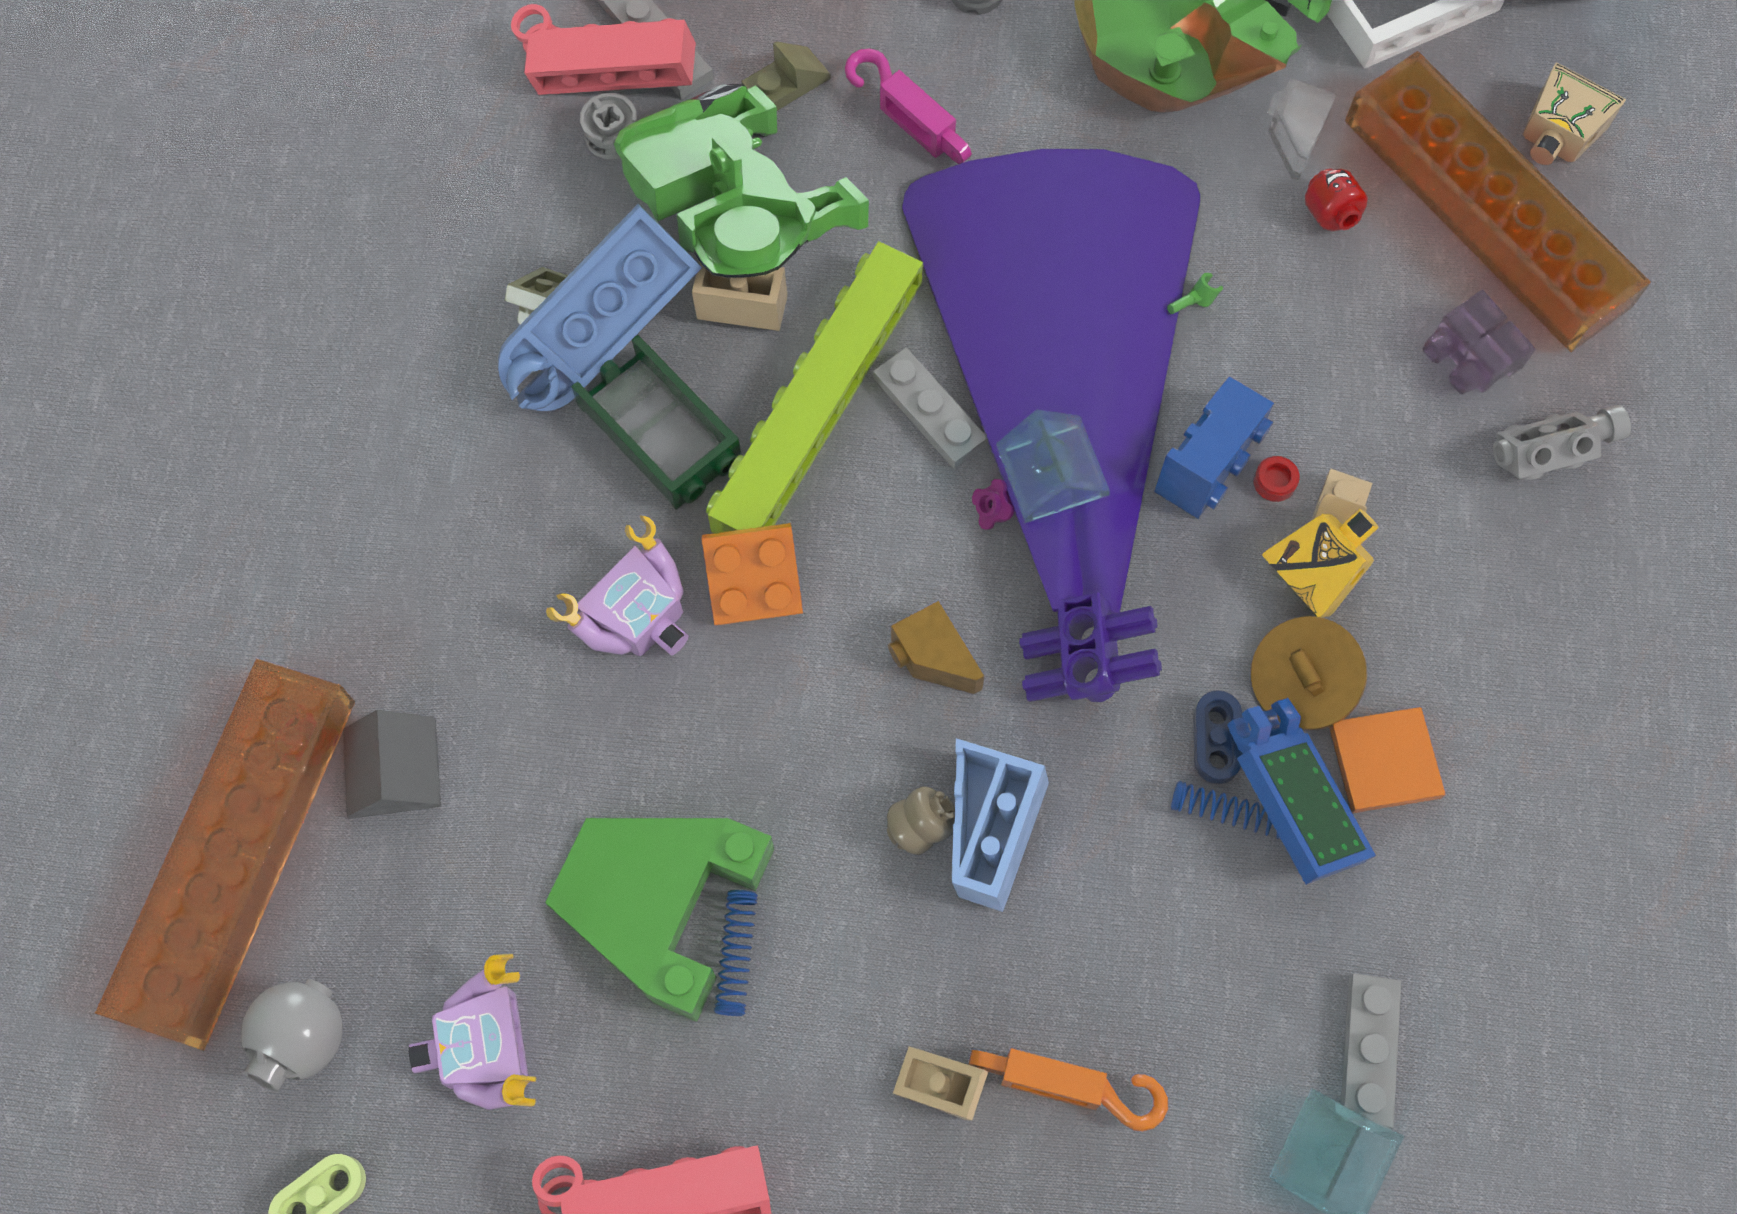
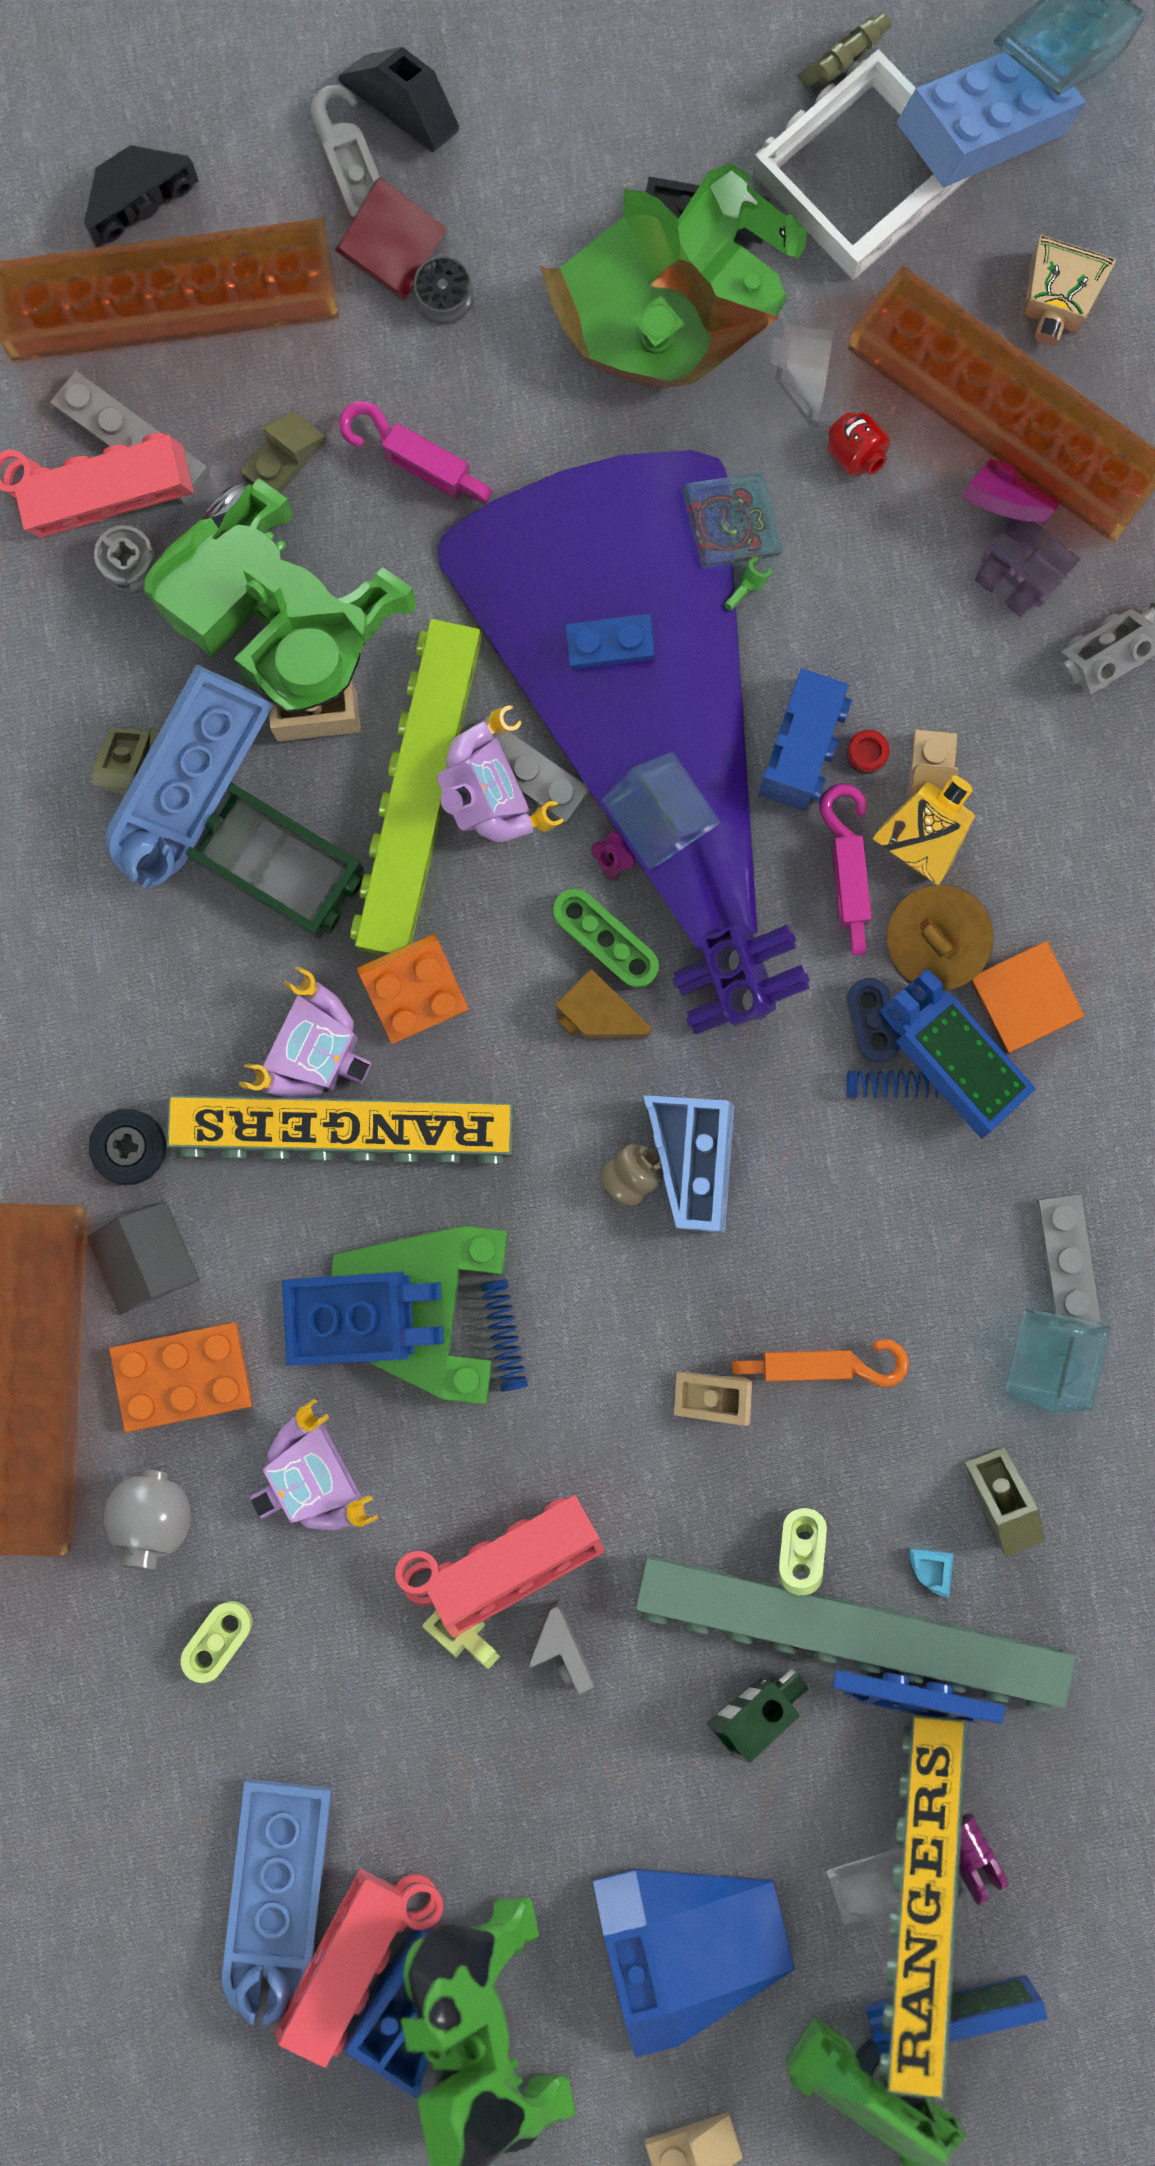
camera: 15 degrees left, 15 degrees up
(385, 899) = (181, 1377): none -> orange plate
(420, 672) = (138, 1165): none -> black bush
(585, 885) = (354, 1318): none -> blue tile
(637, 690) = (340, 1127): none -> brick
(882, 402) = (482, 787): none -> lavender torso
(958, 565) = (596, 921): none -> bright green plate
(1046, 303) = (610, 641): none -> blue plate
(1195, 235) = (732, 519): none -> clear light blue tile
(1230, 579) = (848, 867): none -> dark pink piece
(1469, 268) = (1007, 494): none -> magenta plate

